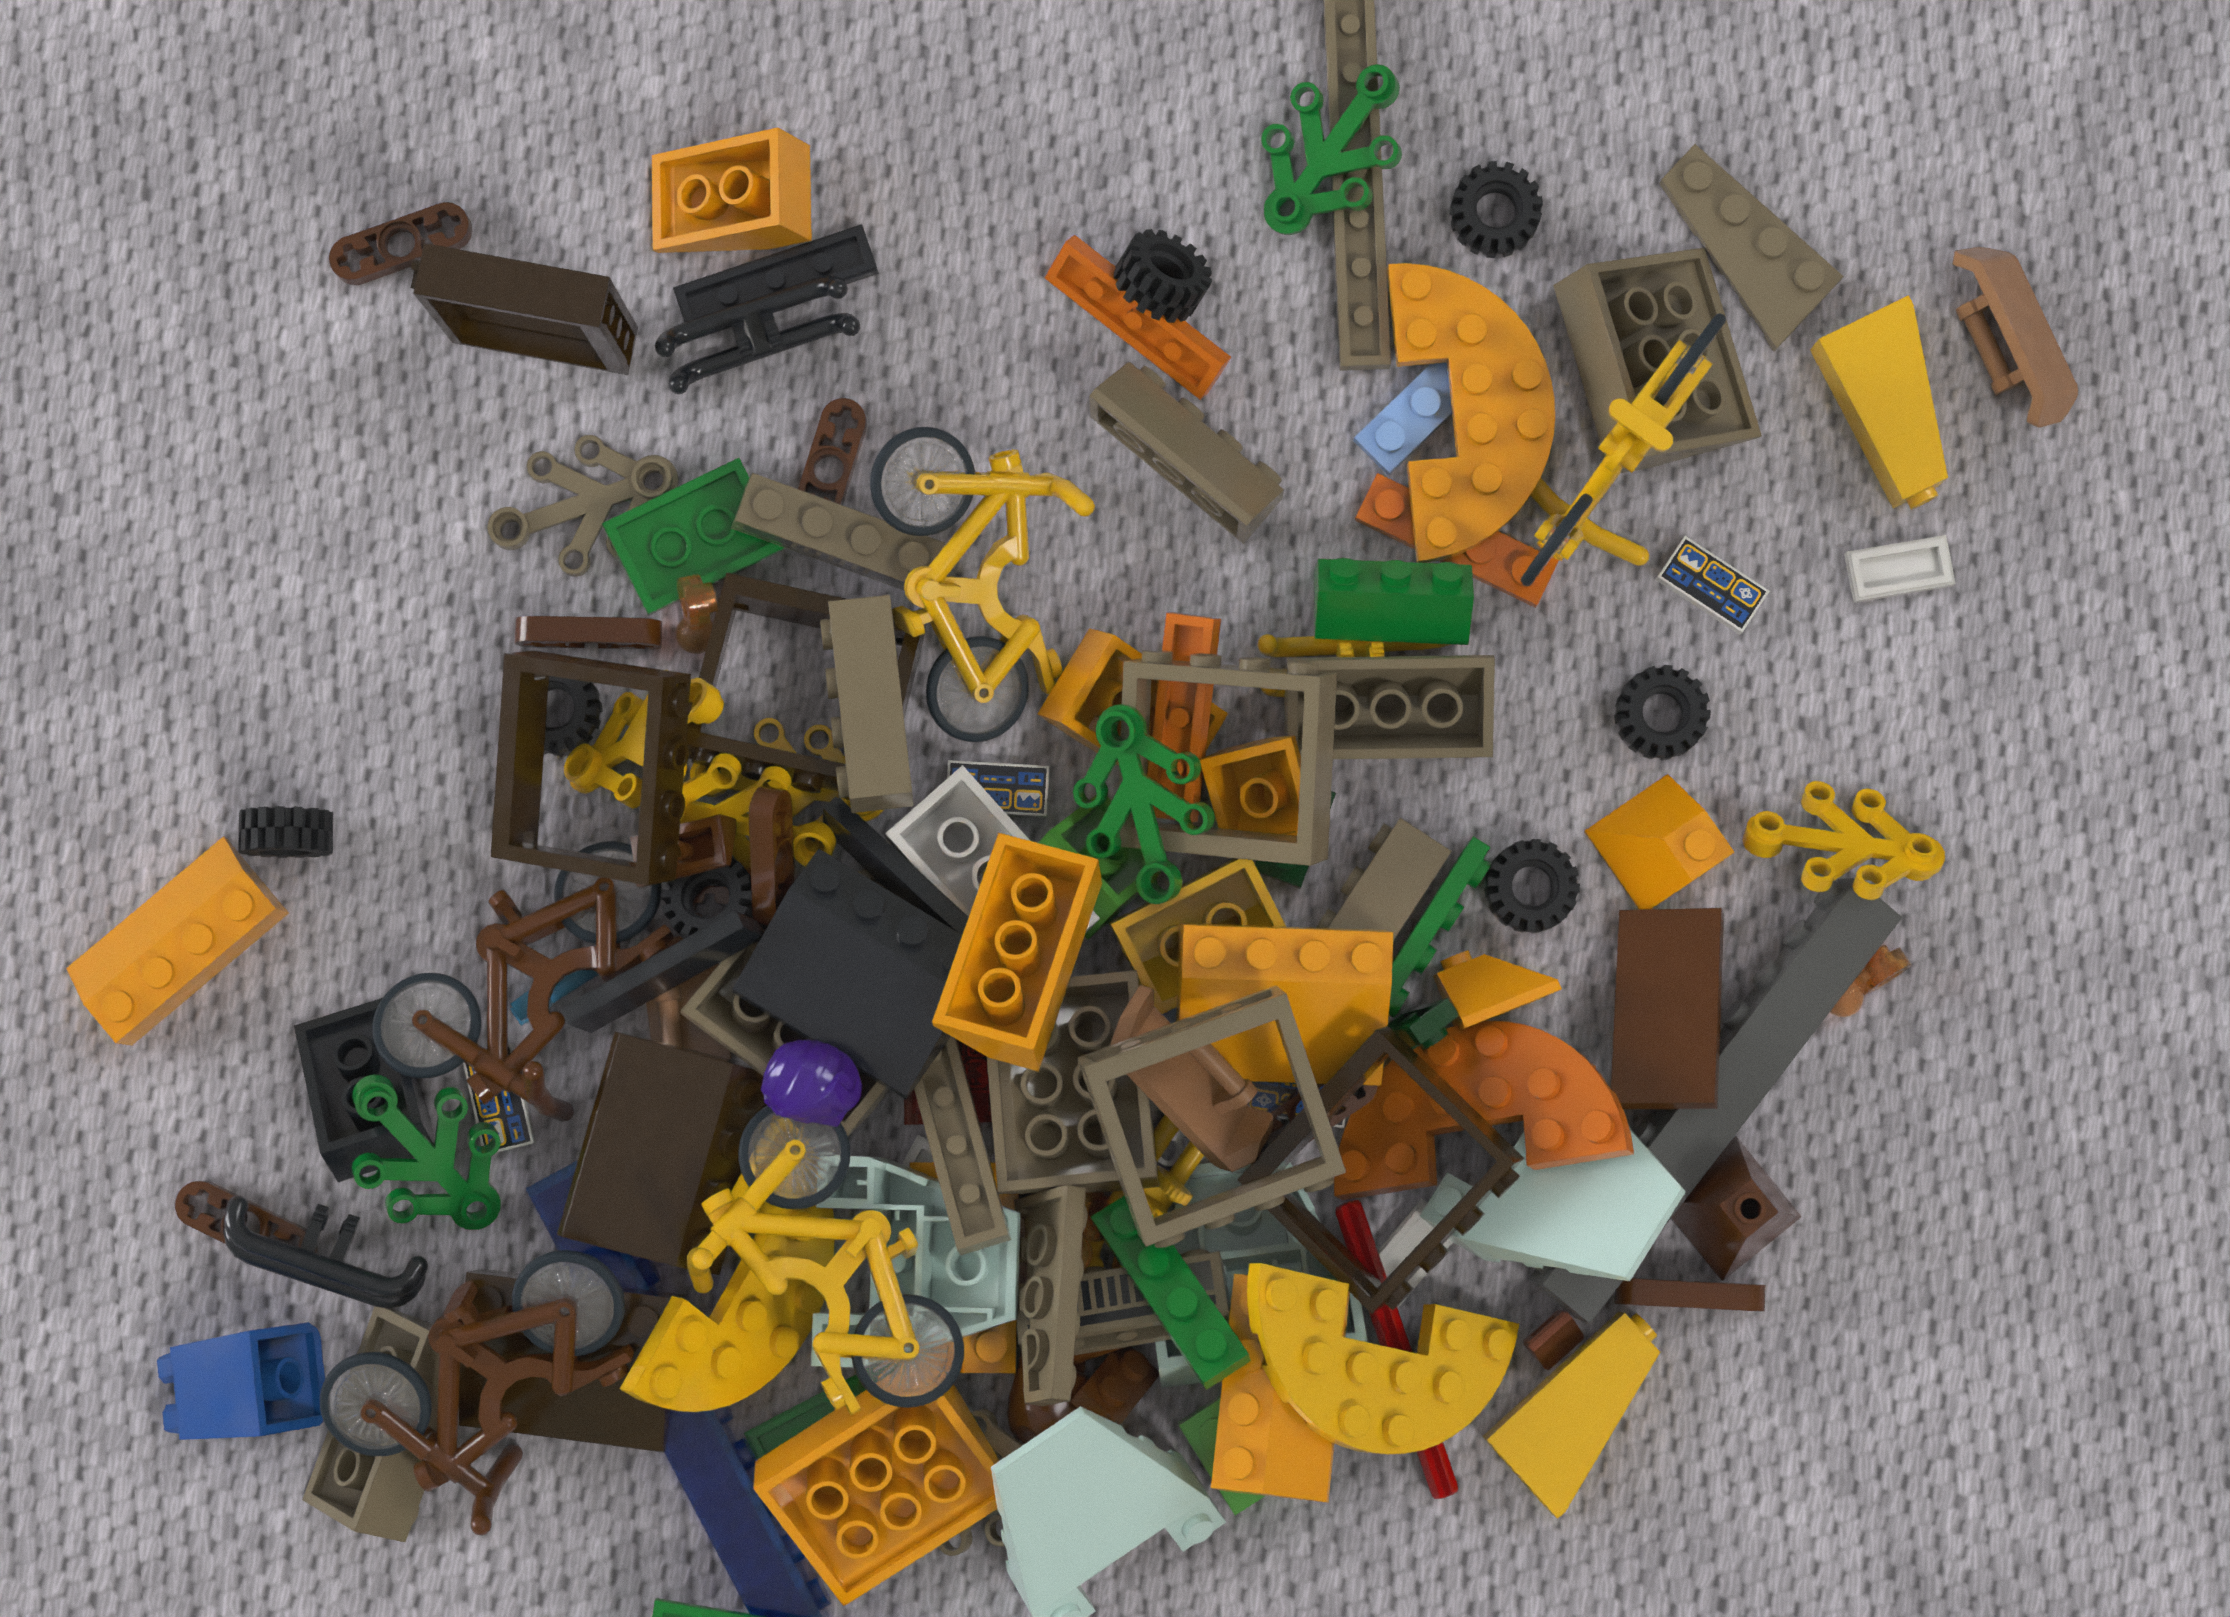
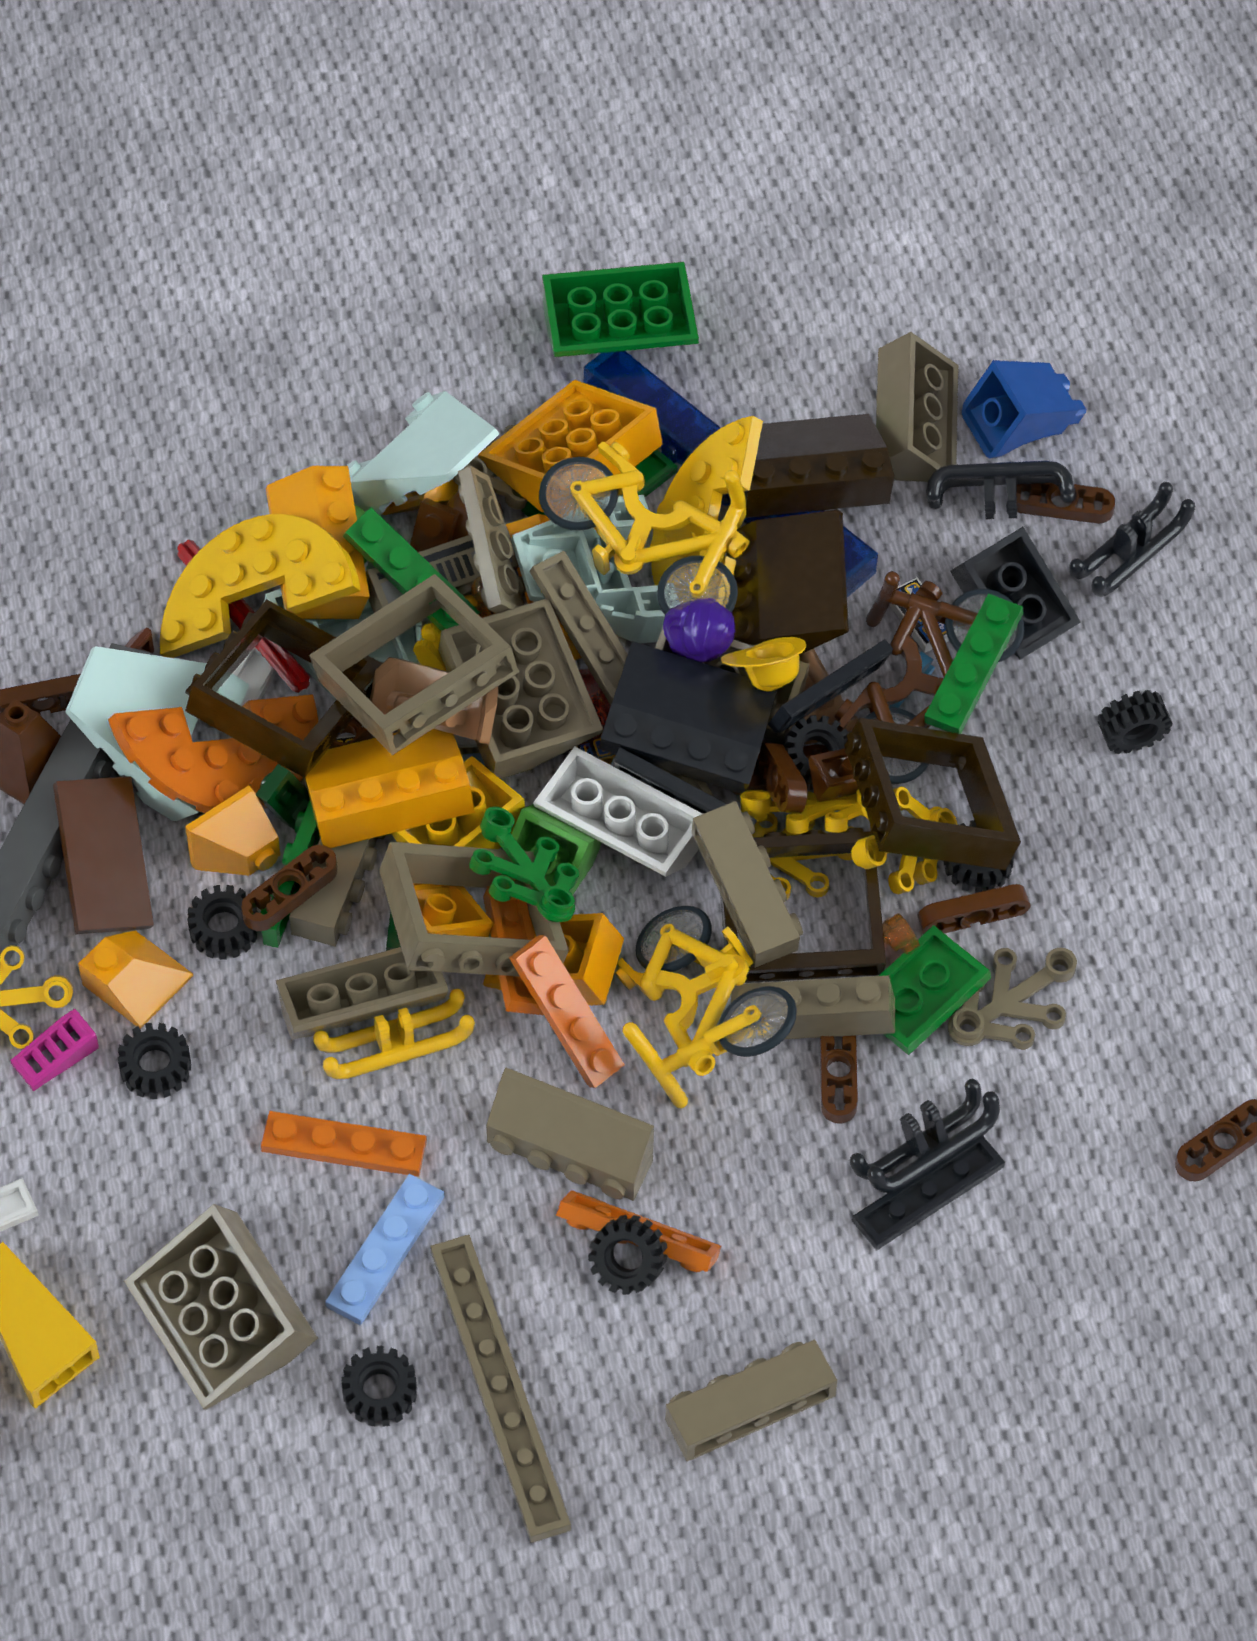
camera: 160 degrees right, 25 degrees down
(174, 943) = (1186, 643): light orange slope -> none
(178, 1128) = (1134, 543): none -> black piece
(384, 1406) = (809, 448): piece -> none
(430, 1161) = (916, 546): green plant -> none
(464, 953) = (973, 664): none -> green plate
(525, 308) = (1095, 1041): dark brown window -> none
(732, 194) = (982, 1235): light orange slope -> none
(739, 1010) = (770, 662): none -> yellow piece
(1015, 787) = (636, 891): tile -> none
(1019, 950) = (582, 739): light orange slope -> none
(1073, 69) = (750, 1399): none -> dark tan brick
(1146, 600) = (566, 1011): none -> orange plate
(1326, 156) = (527, 1383): green plant -> none
(1393, 601) = (382, 1072): green slope -> none
(1471, 855) = (285, 904): none -> reddish brown beam
(1497, 403) = (338, 1234): light orange plate -> none
(1573, 1412) = (111, 603): yellow slope -> none
(1636, 431) = (231, 1175): yellow piece -> none
(1712, 585) = (137, 1163): tile -> none
(1743, 779) = (62, 1060): none -> dark pink slope
(1757, 253) = (162, 1415): dark tan wing -> none

